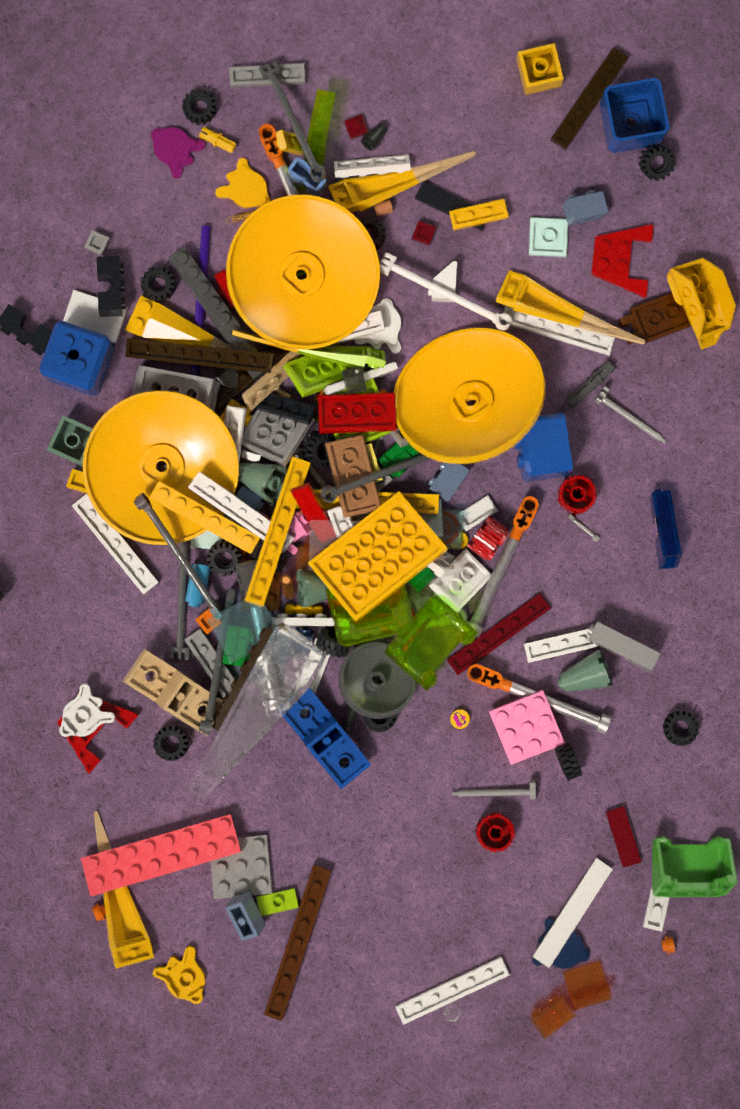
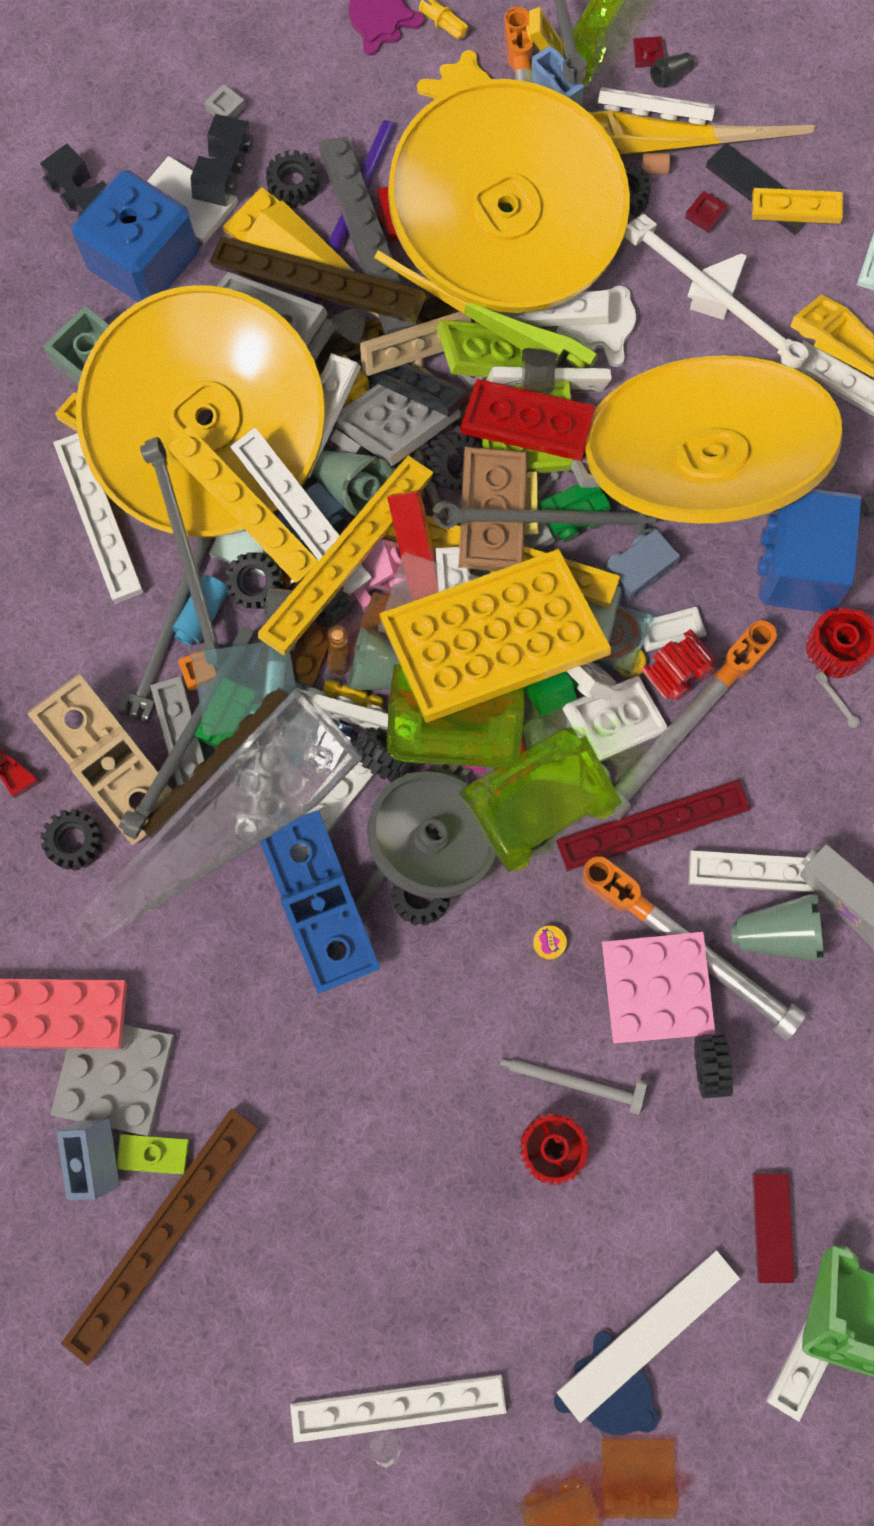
camera: 20 degrees right, 10 degrees down
(668, 945) = (804, 1450): orange plate -> none

